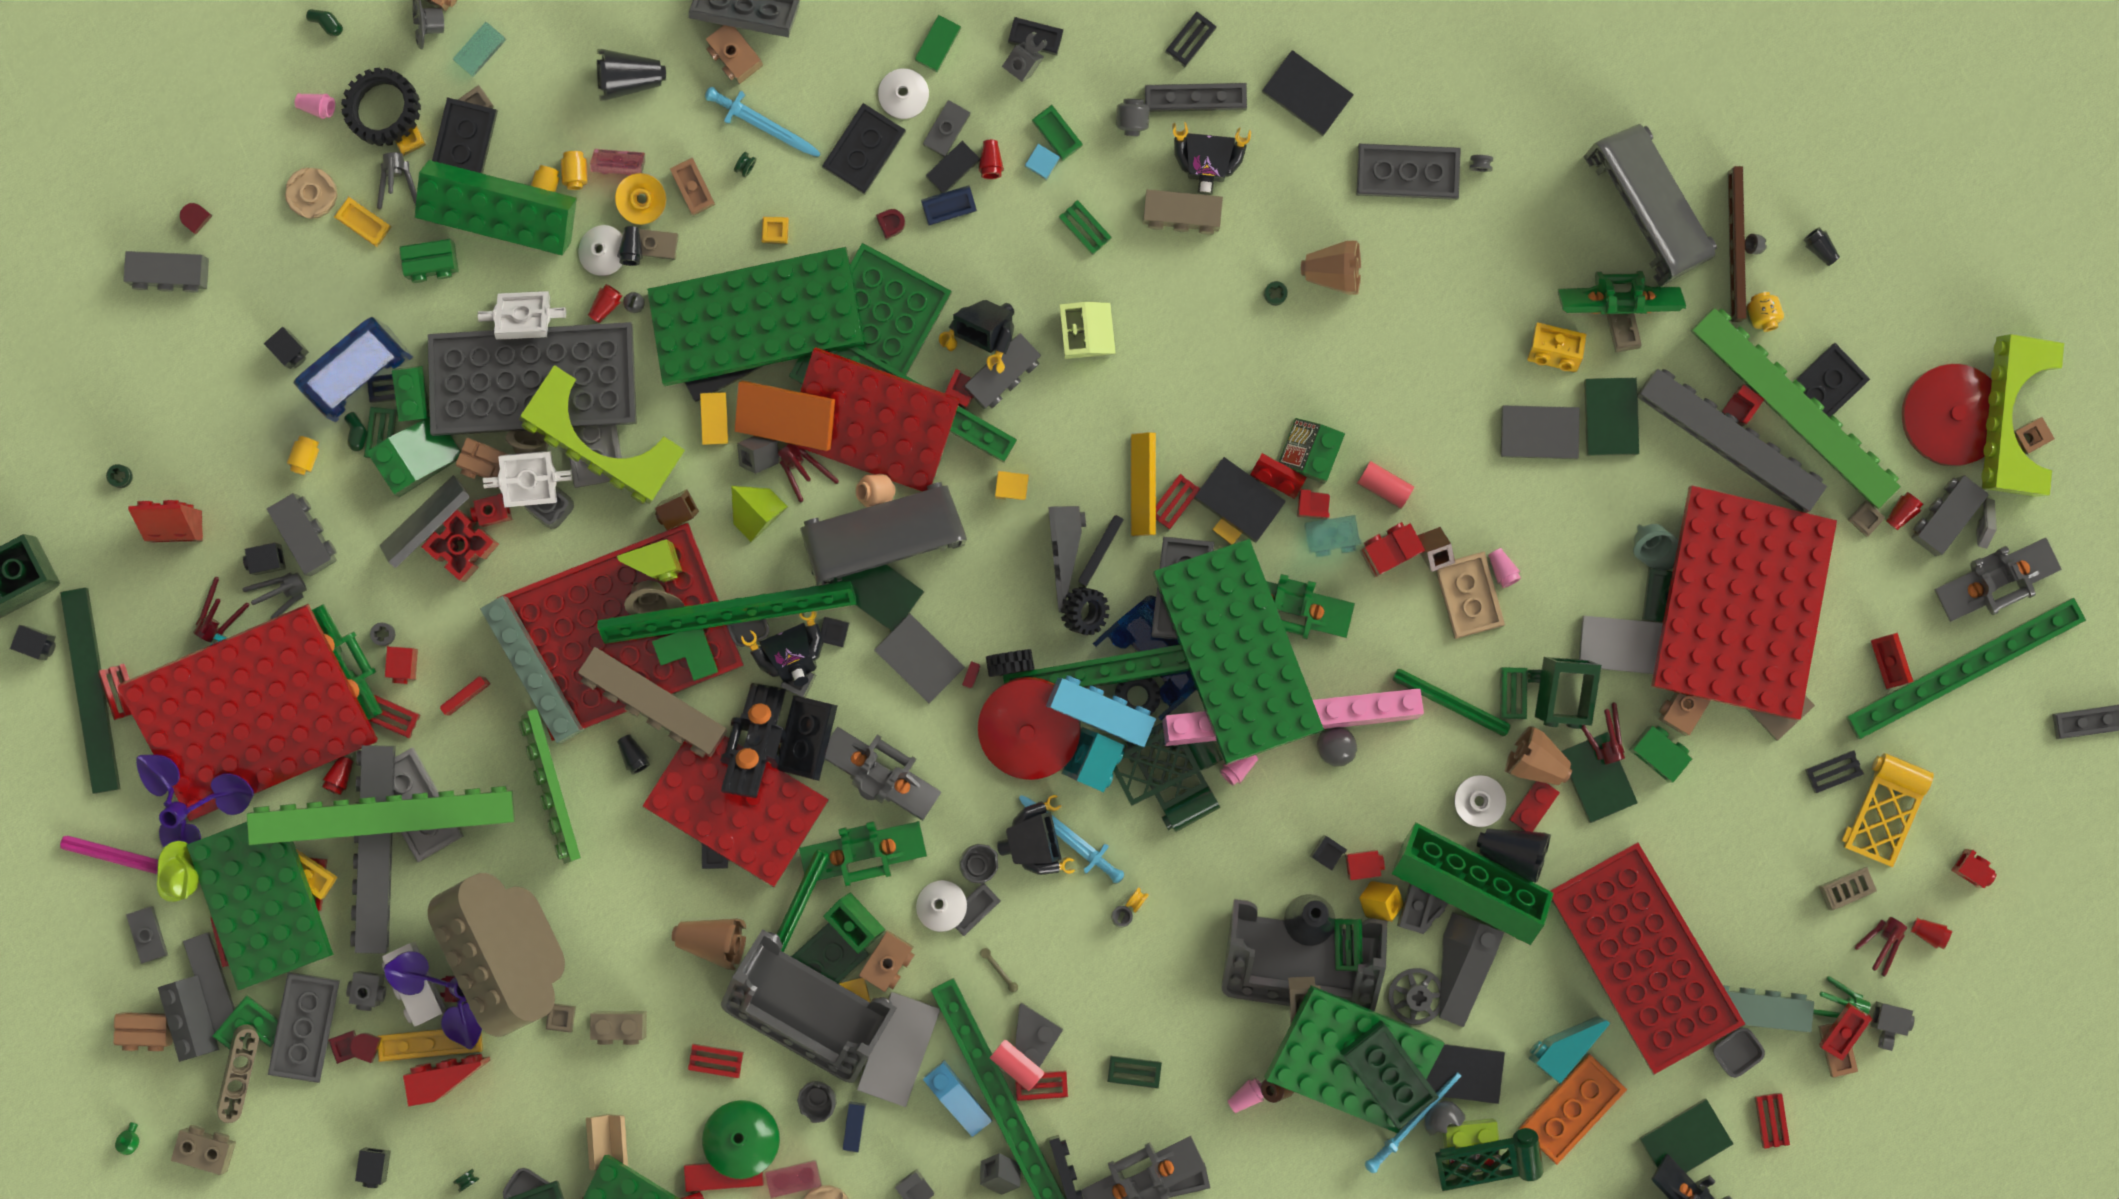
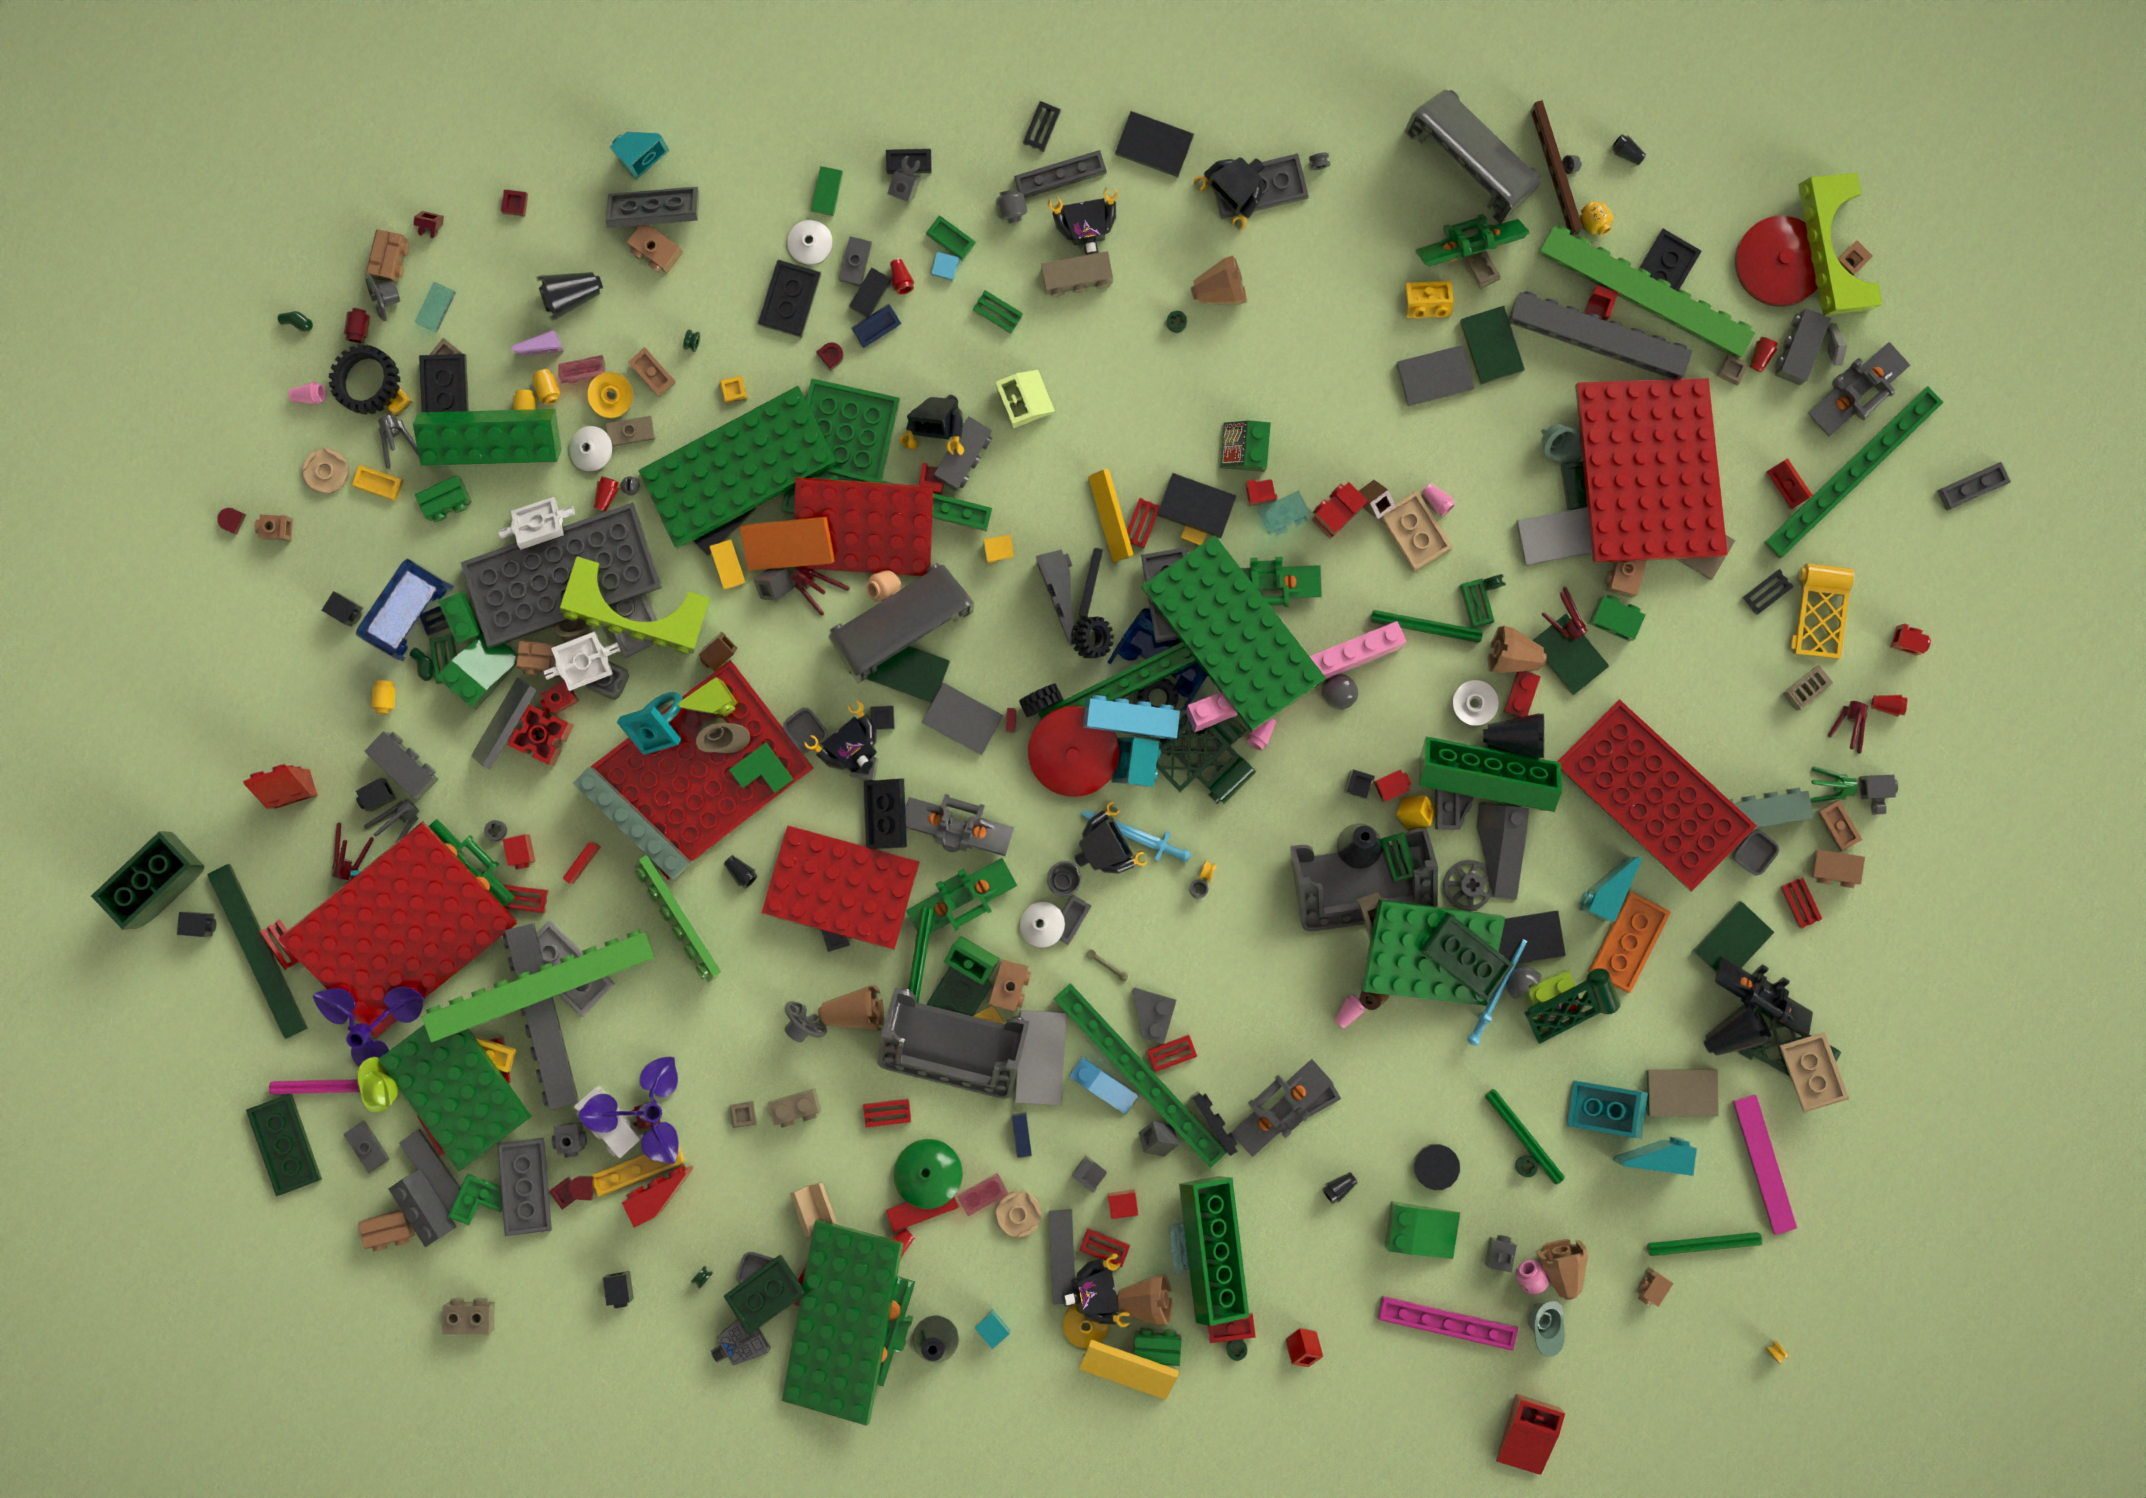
camera: 20 degrees left, 0 degrees up
(59, 907) = (283, 1144): none -> dark green tile
(126, 481) = (222, 757): dark green bush -> none
(128, 1140) = (400, 1328): green piece -> none
(166, 271) = (219, 572): dark grey brick -> none
(237, 1073) = (481, 1242): dark tan beam -> none
(246, 242) = (281, 527): none -> medium nougat brick
(338, 776) = (492, 962): red cone -> none
(389, 45) = (356, 325): none -> dark red brick
(498, 951) = (672, 1072): dark tan brick -> none
(578, 572) = (649, 728): none -> teal tile
(587, 122) = (544, 343): none -> lavender slope
(630, 247) = (613, 439): black cone -> none
(650, 939) = (801, 1025): none -> dark grey wheel
(652, 702) = (744, 821): dark tan brick -> none
(727, 612) = (786, 725): green plate -> none
(745, 113) = (692, 300): medium azure sword -> none
(755, 509) = (784, 632): lime slope -> none
(761, 744) = (848, 822): black piece -> none
(817, 1101) = (983, 1122): dark grey hair -> none
(1017, 1065) = (1146, 1041): coral brick -> none
(1112, 1068) = (1228, 1021): dark green tile -> none
(1278, 476) = (1223, 475): red plate -> none
(1383, 164) = (1236, 185): none -> black torso
(1385, 485) = (1317, 457): coral brick -> none
(1548, 690) = (1506, 589): dark green window -> none
(1822, 1094) = (1838, 867): none -> medium nougat brick
(1845, 1031) = (1842, 808): red plate -> none

